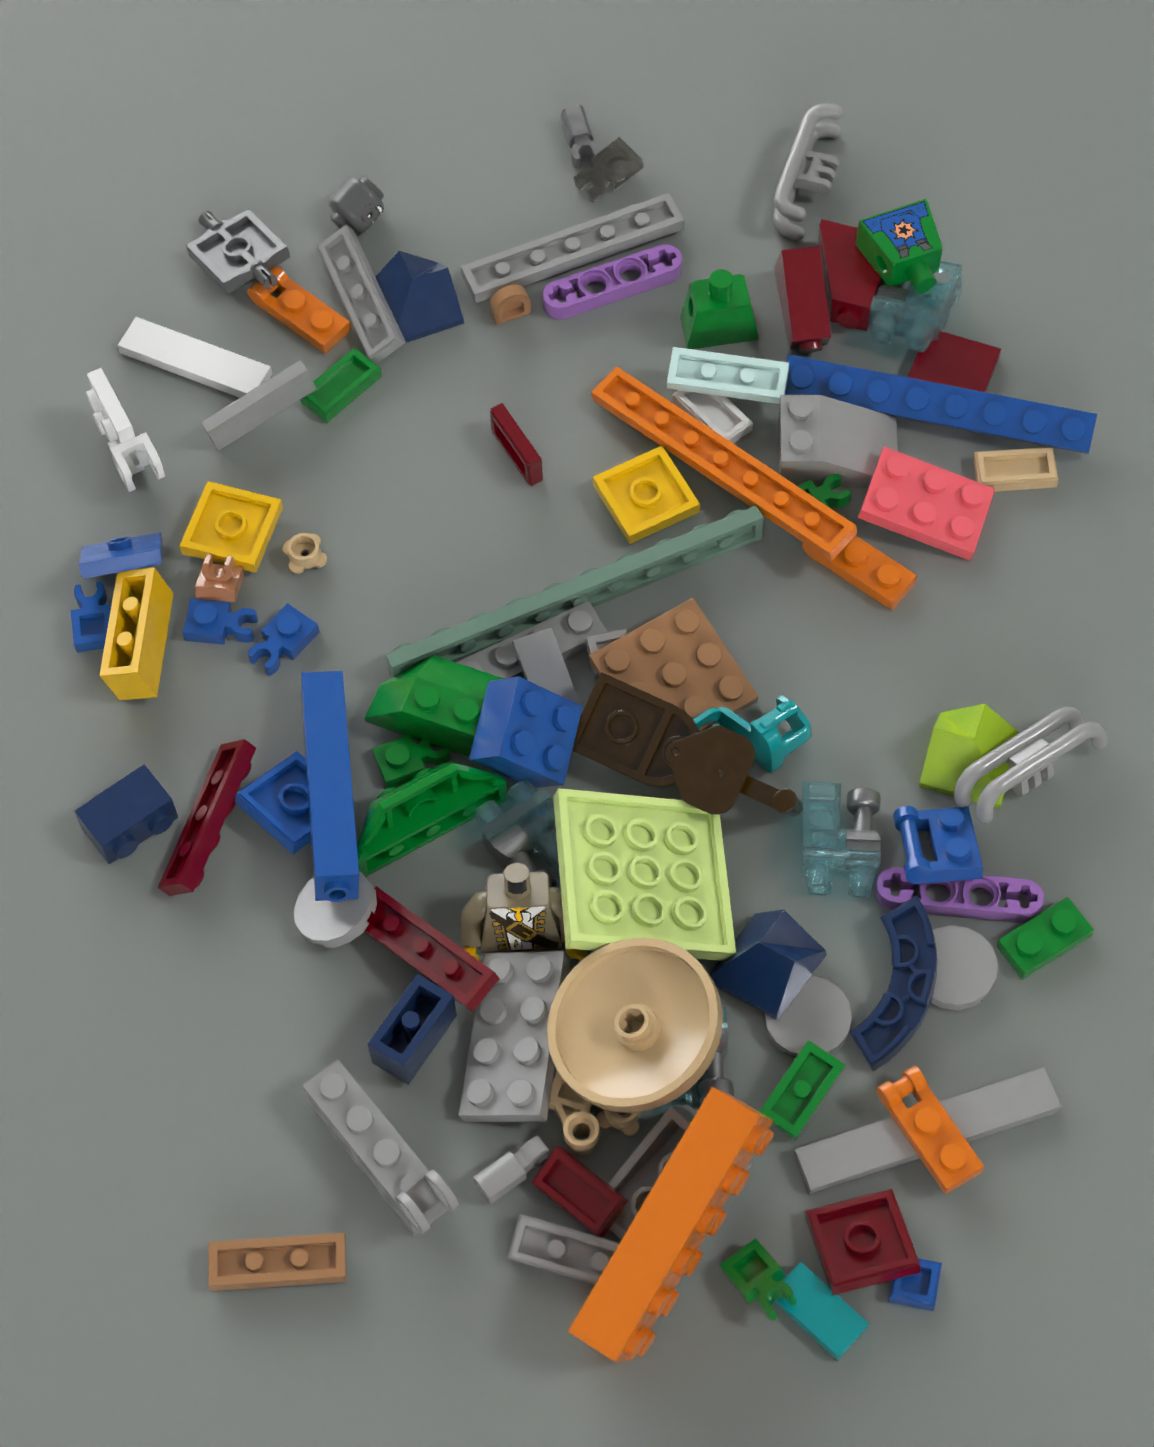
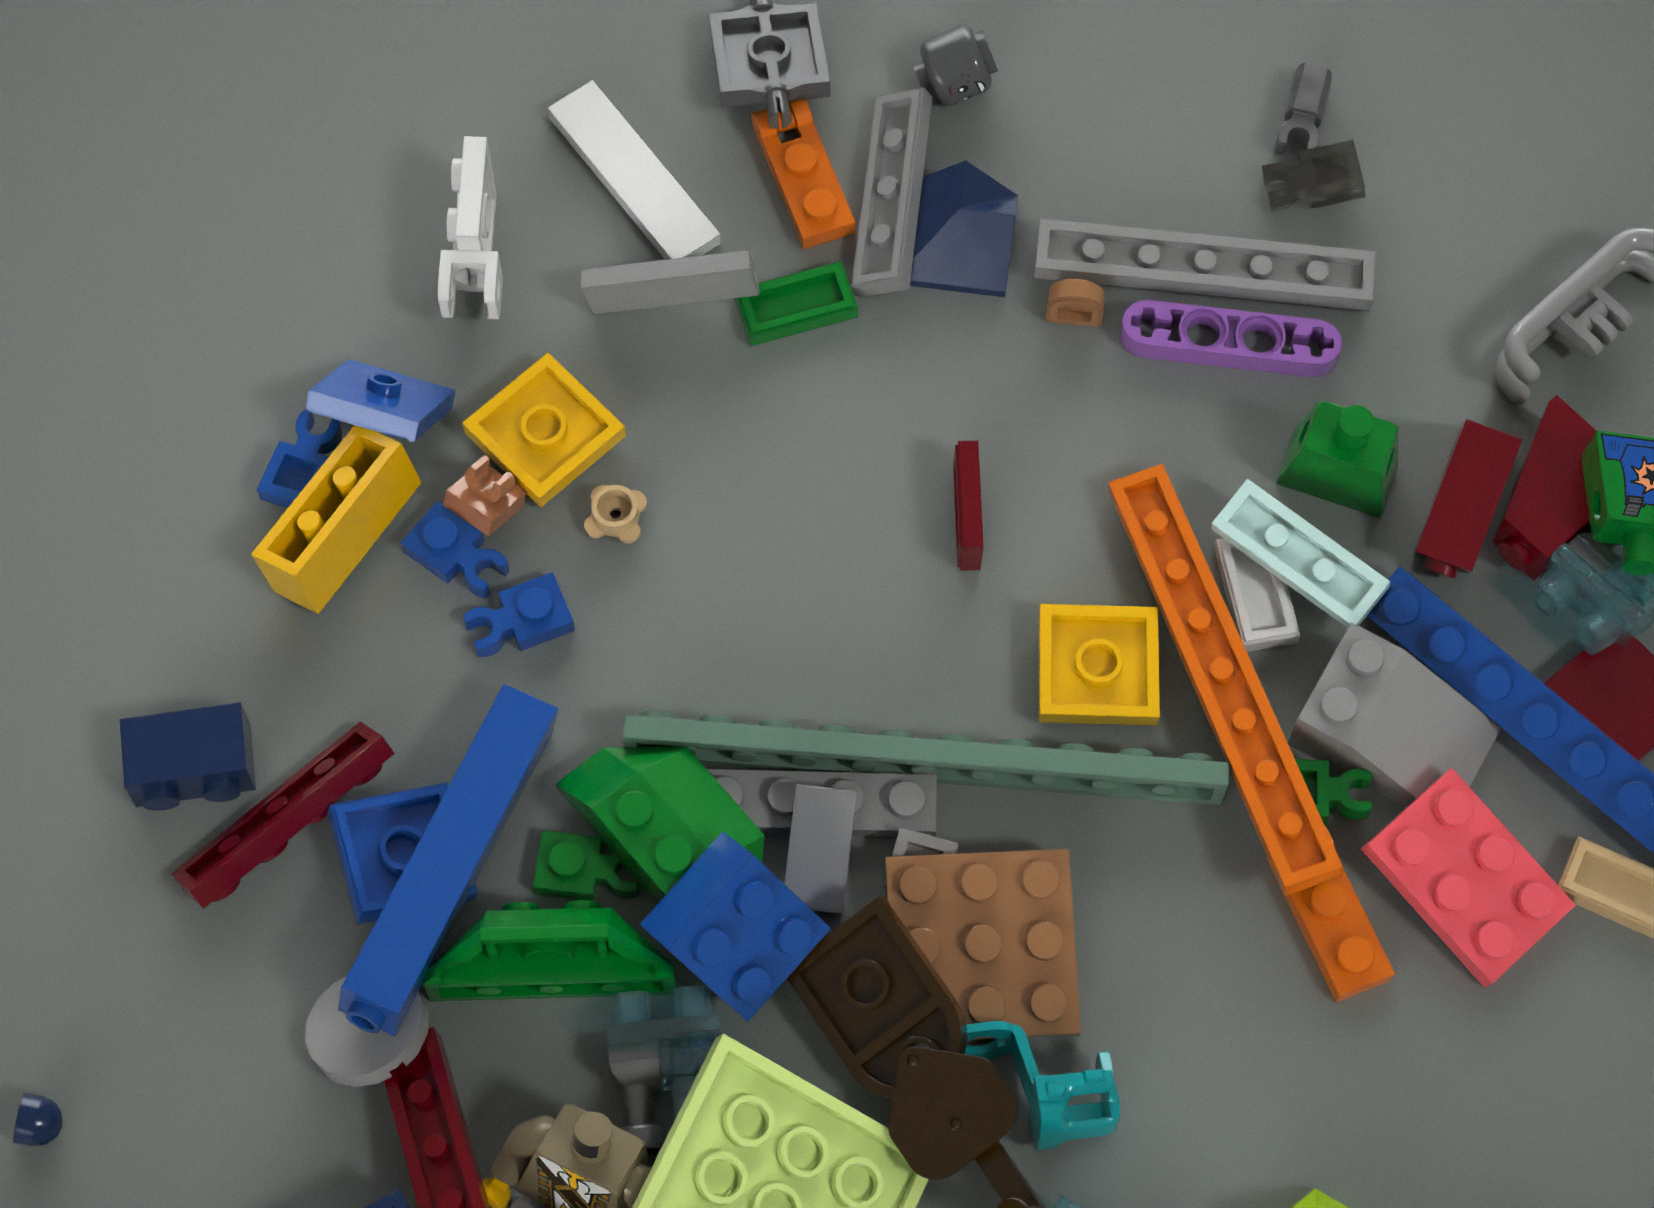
camera: 25 degrees right, 5 degrees up
(162, 1065) = (37, 1121): none -> dark blue hinge

